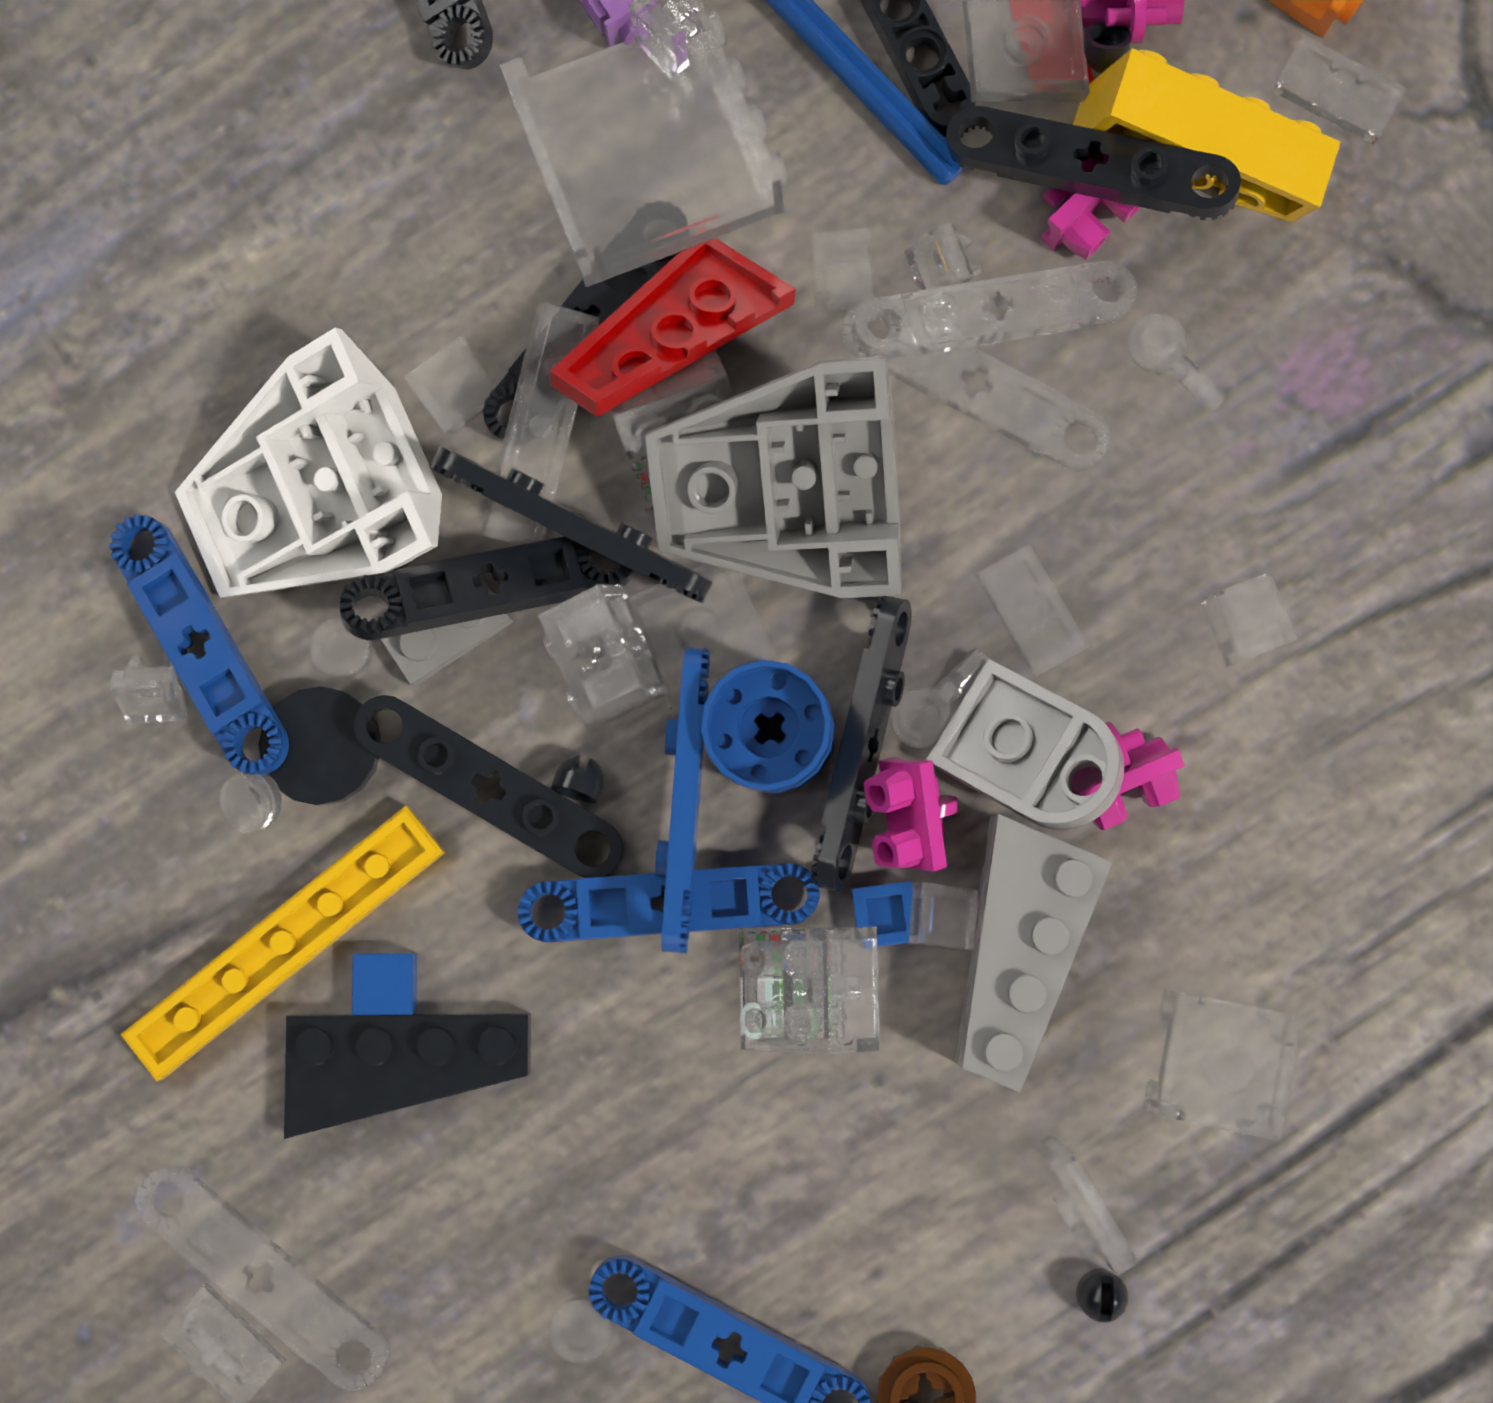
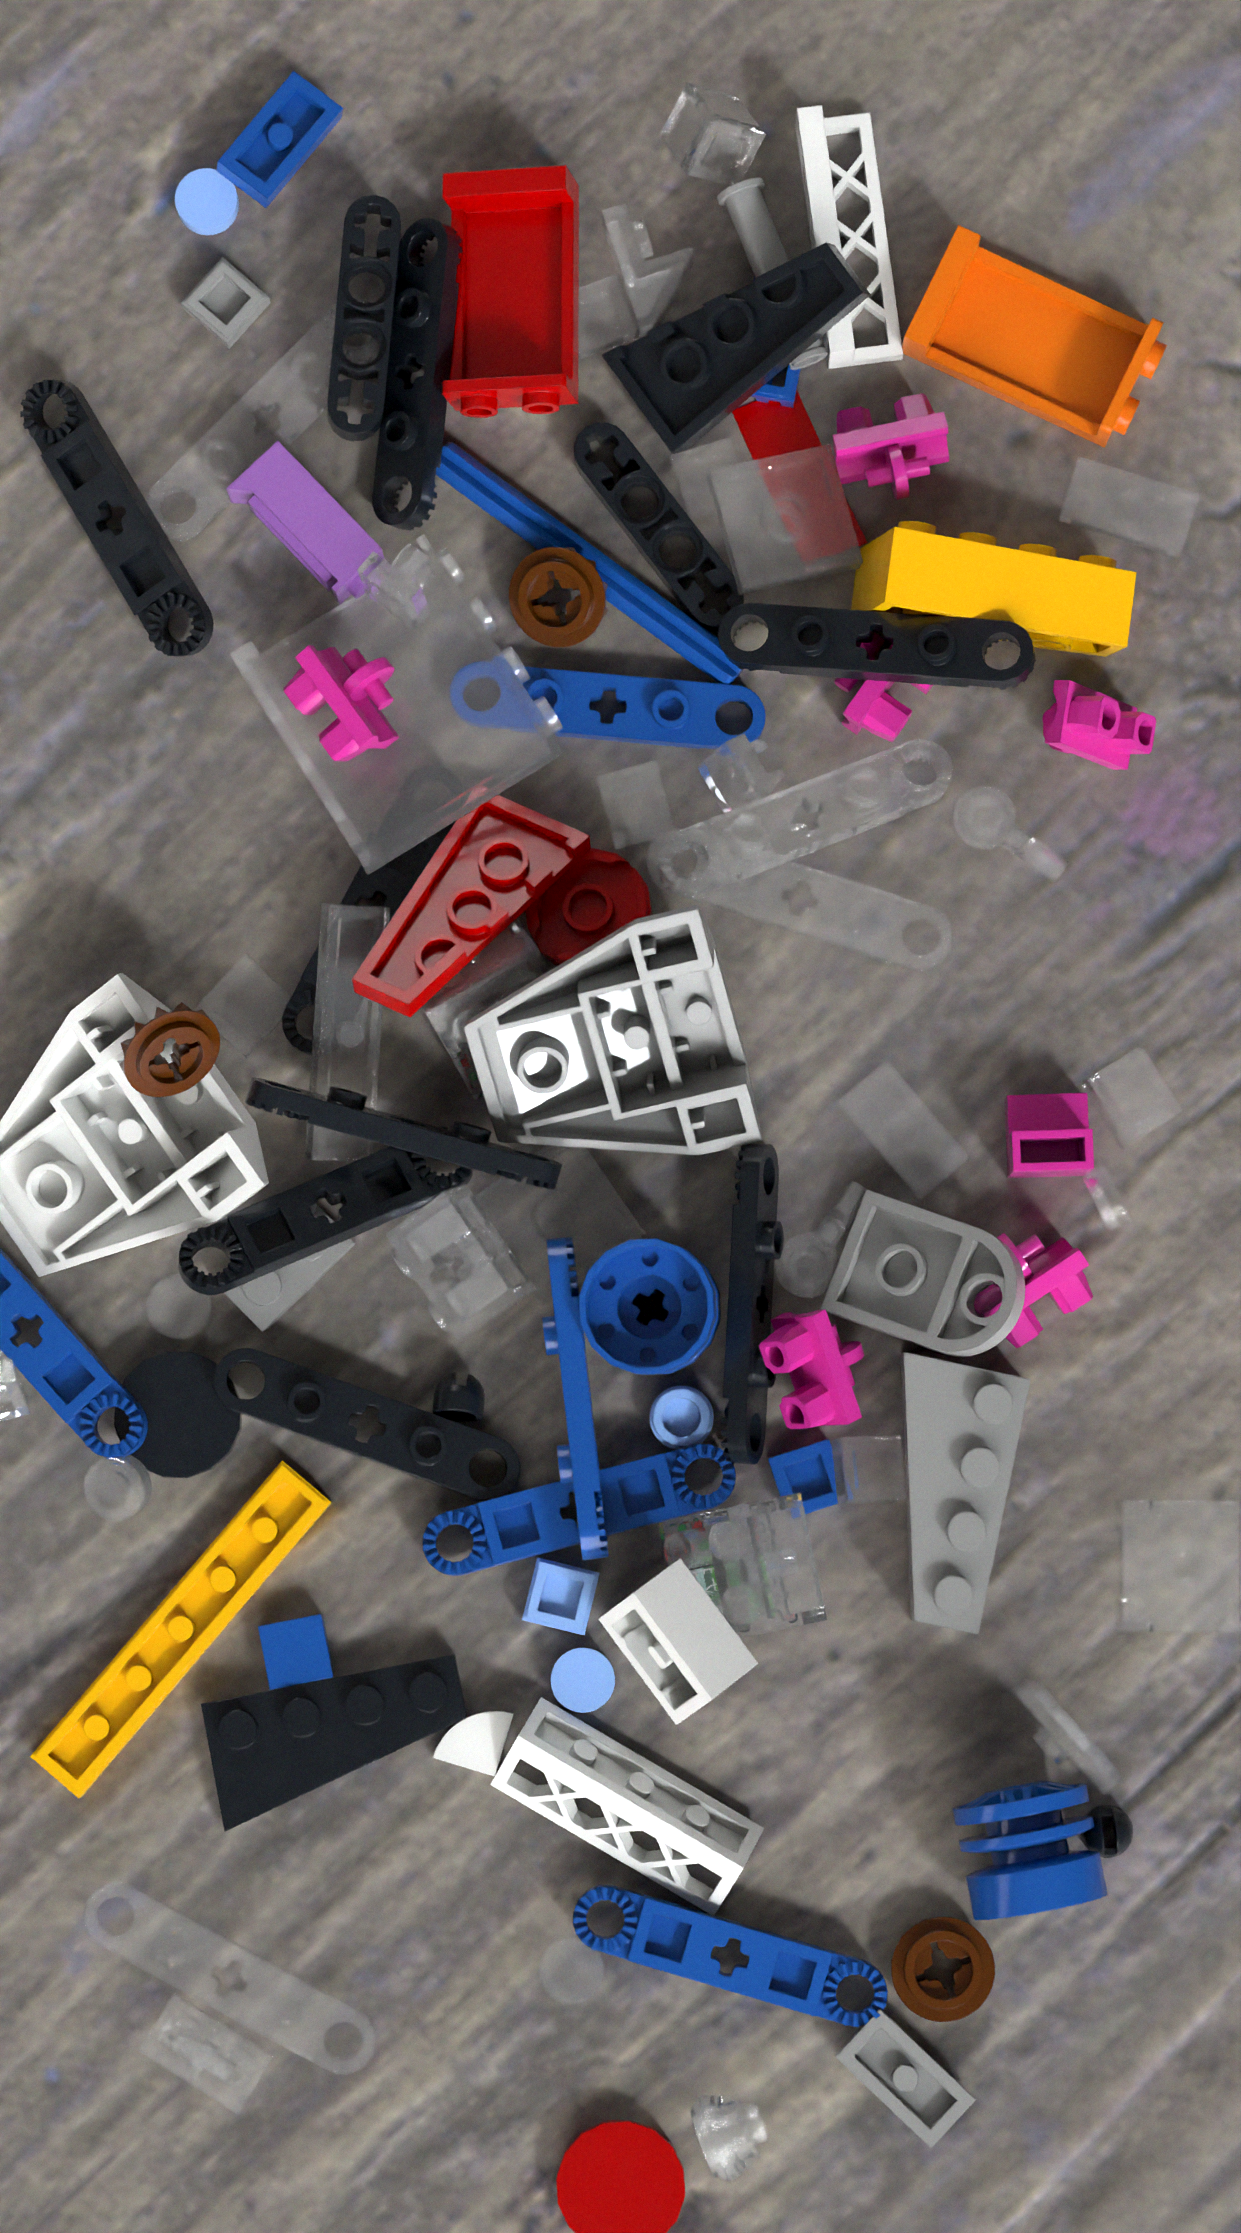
camera: 10 degrees left, 0 degrees up
(392, 416) = (192, 1054): none -> reddish brown gear
(533, 1099) = (476, 1741): none -> white tile
(606, 117) = (352, 691): none -> dark pink hips
(637, 979) = (560, 1596): none -> light blue tile
(642, 1060) = (582, 1680): none -> light blue tile
(667, 1182) = (632, 1798): none -> white fence
(736, 1047) = (678, 1641): none -> white slope
(778, 348) = (587, 905): none -> red tile
(779, 835) = (681, 1417): none -> light blue tile
(789, 54) = (545, 620): none -> reddish brown gear
(877, 193) = (656, 711): none -> blue piece
(1030, 1321) = (1029, 1851): none -> blue wheel
(1105, 45) = (871, 508): black hinge -> none
(1165, 641) = (1048, 1135): none -> dark pink piece
(1209, 708) = (1107, 1198): none -> clear tile
(1277, 275) = (1096, 726): none -> dark pink hips

